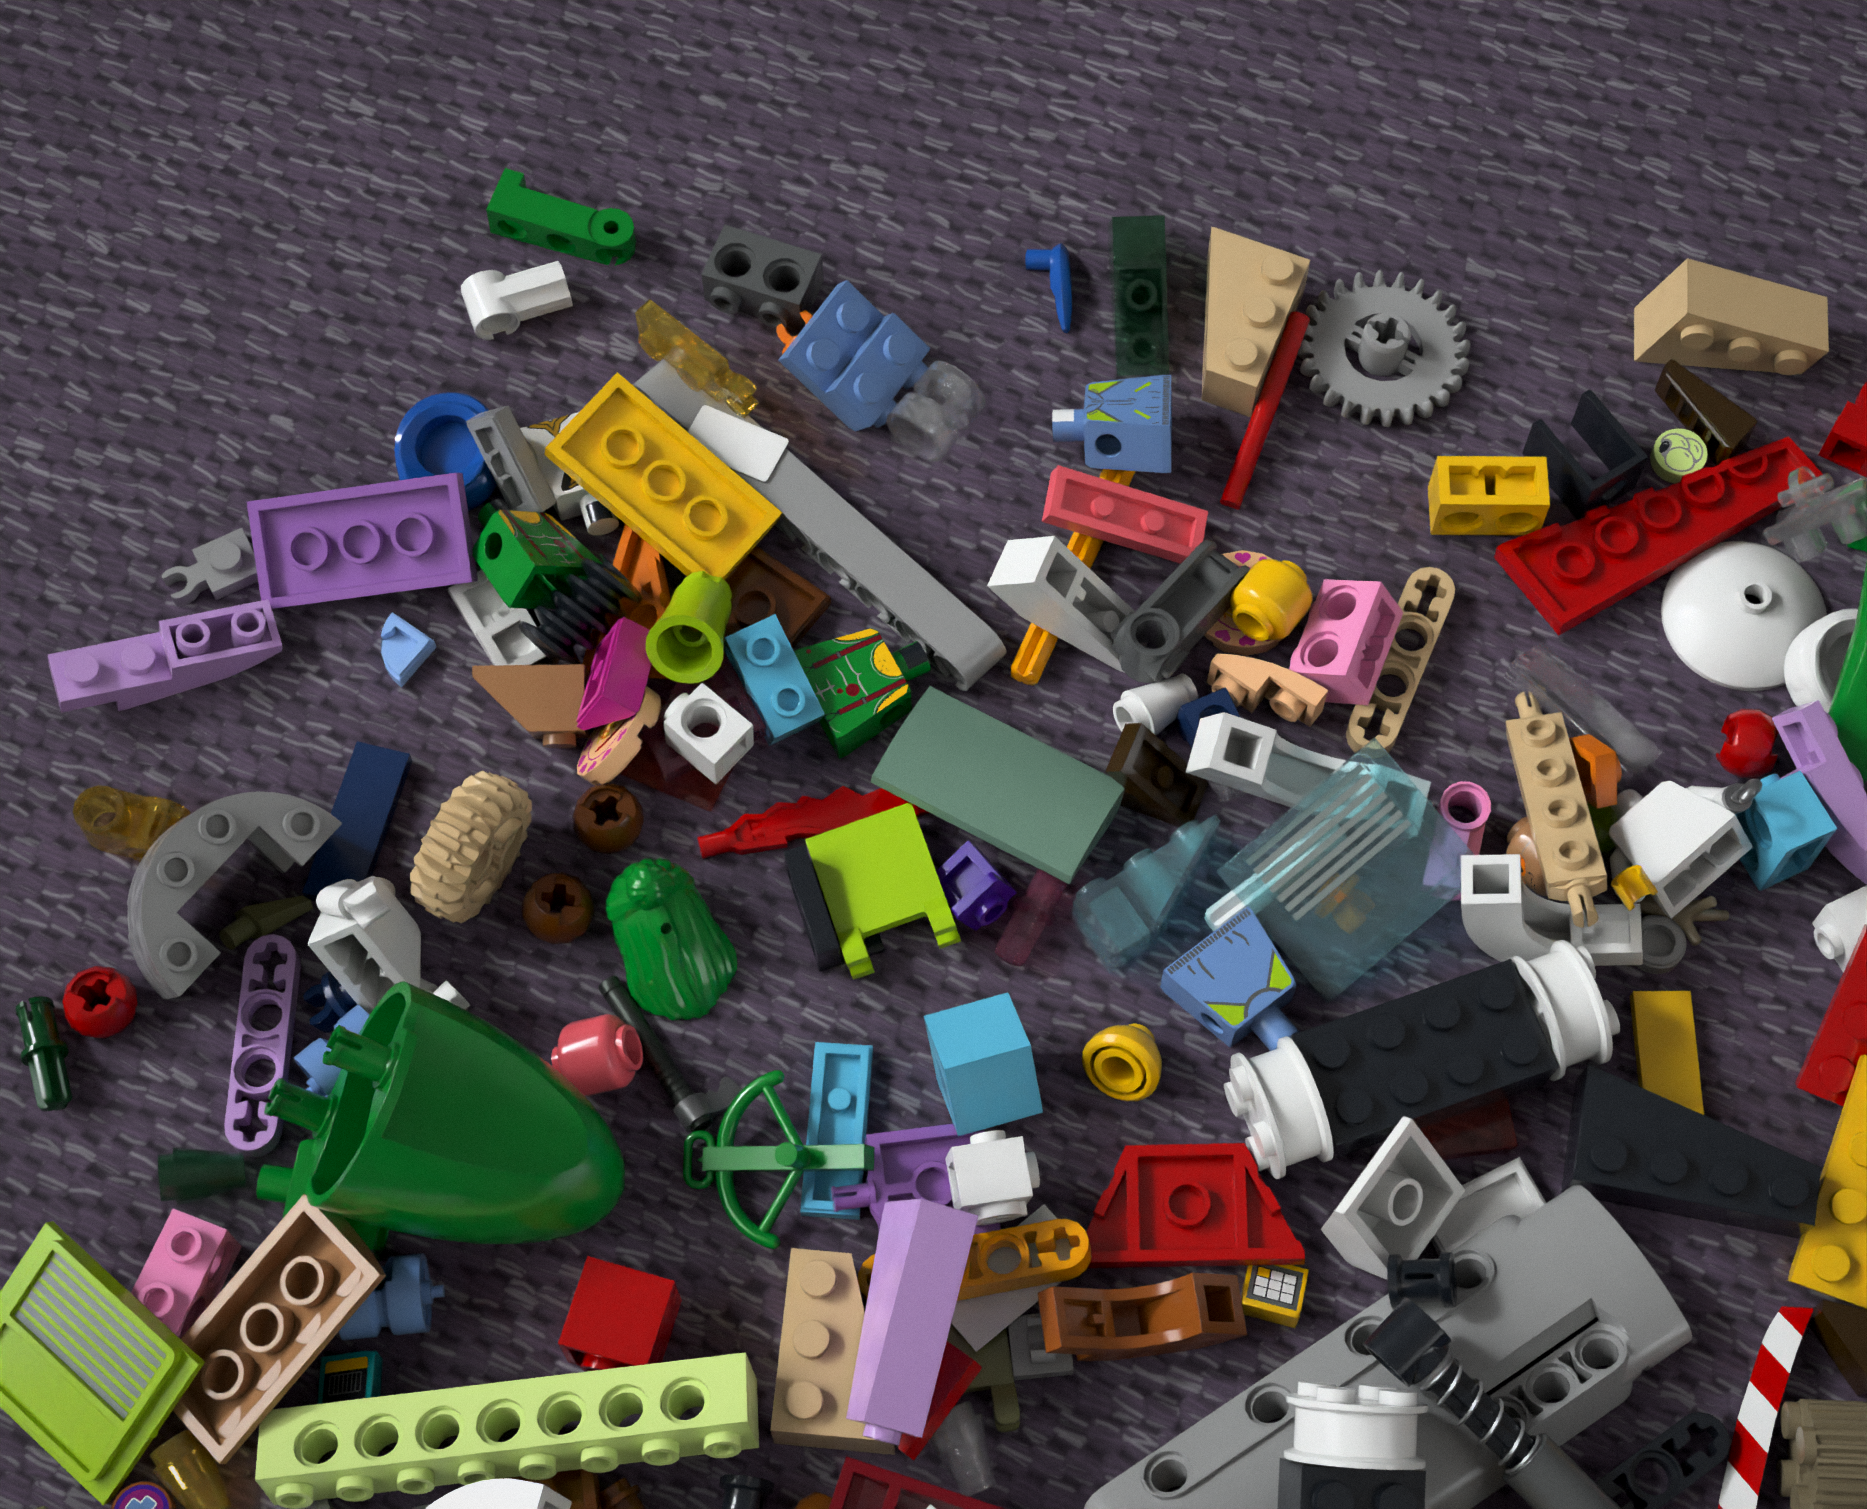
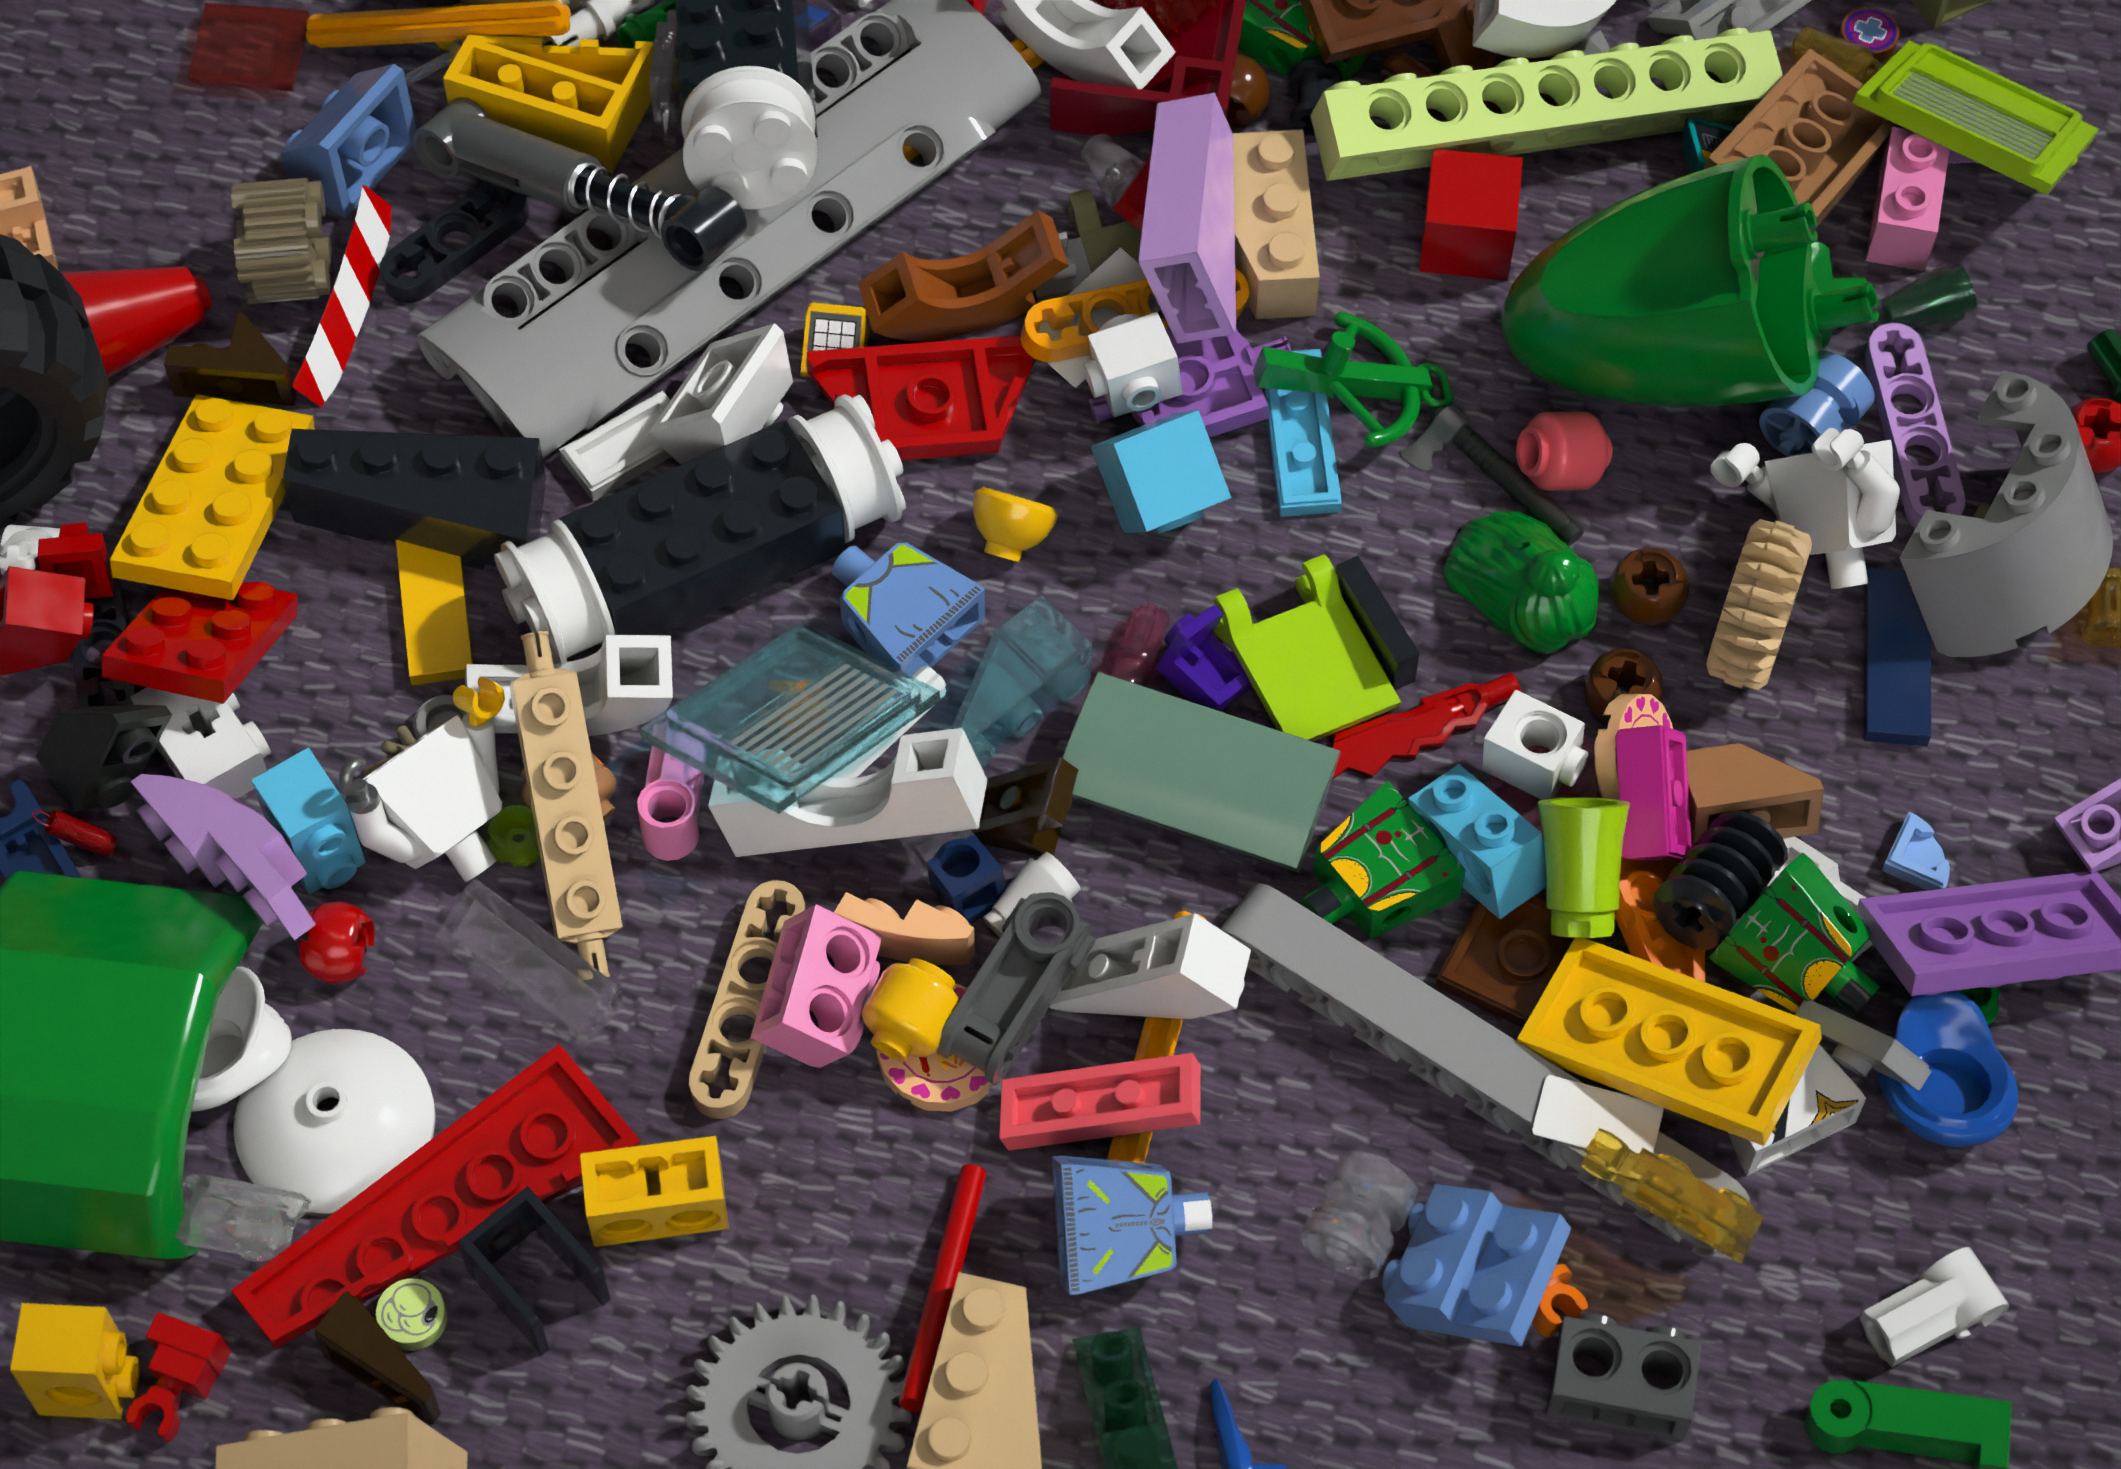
camera: 170 degrees right, 5 degrees down
(1422, 1280) = (689, 315): black bush -> none
(1597, 769) = (516, 872): orange plate -> none

